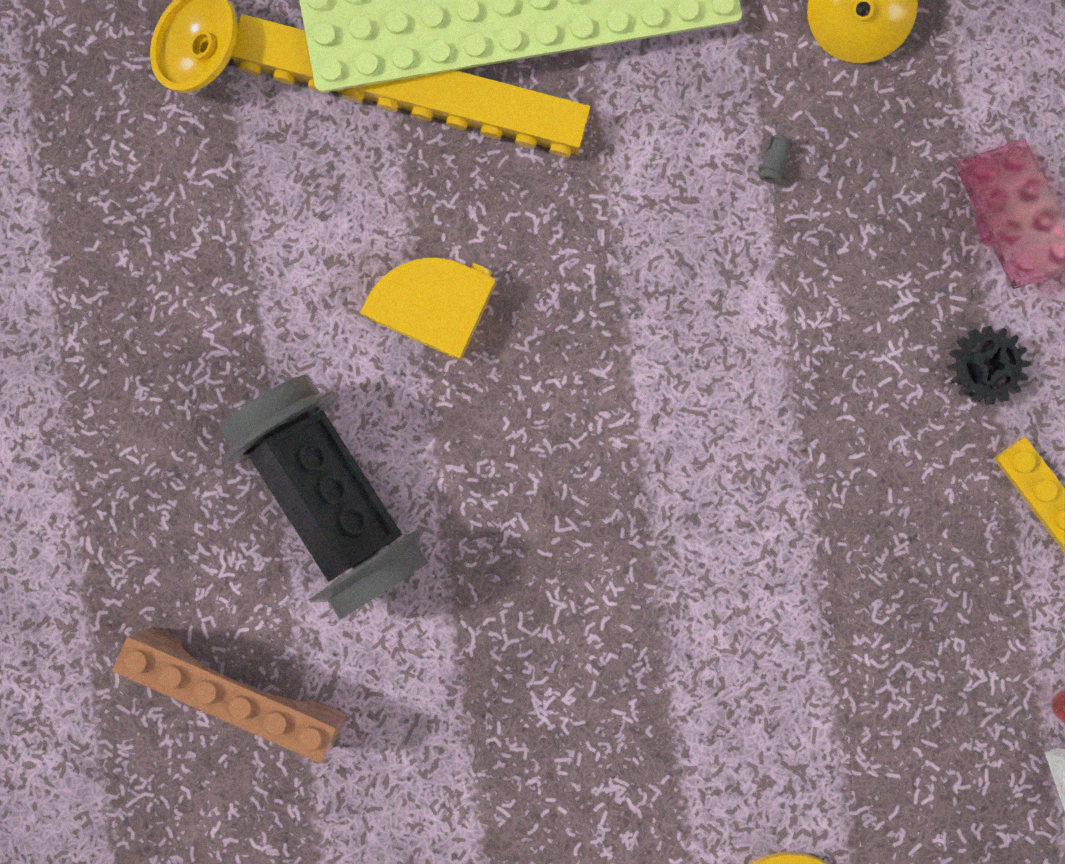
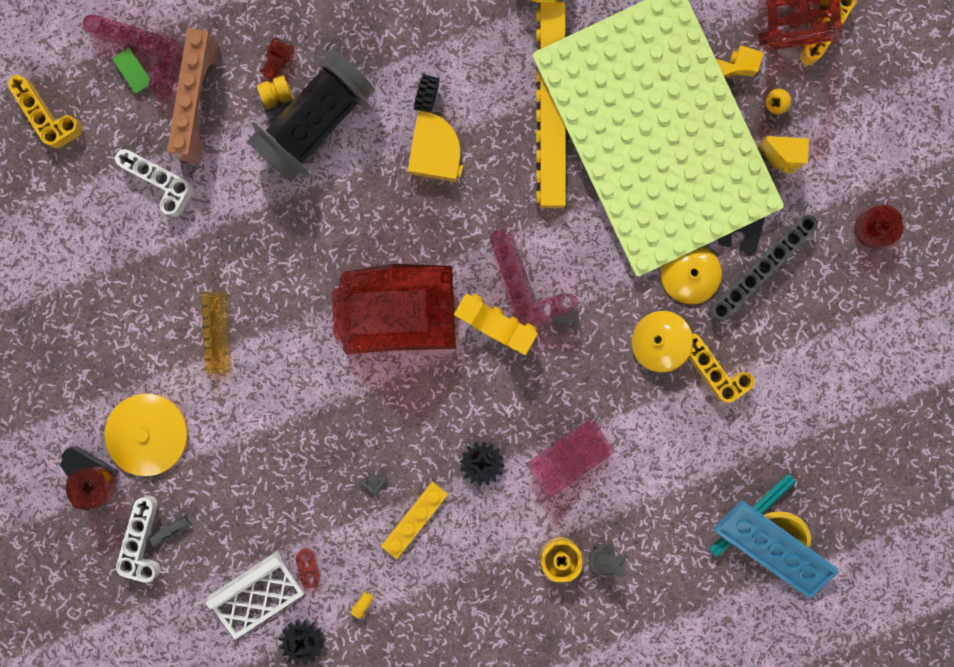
camera: 70 degrees right, 0 degrees up
(114, 760) = (142, 44): none -> clear pink beam
(155, 788) = (132, 70): none -> bright green slope
(199, 531) = (277, 57): none -> clear red connector
(261, 551) = (275, 92): none -> yellow wheel
(334, 290) = (426, 93): none -> black tyre
(353, 800) = (153, 176): none -> white beam
(649, 761) = (215, 332): none -> clear yellow fence
(698, 443) = (395, 309): none -> clear red windscreen
(708, 214) = (523, 284): none -> clear pink beam
(768, 272) = (495, 324): none -> yellow brick
(972, 558) = (373, 483): none -> dark grey tile

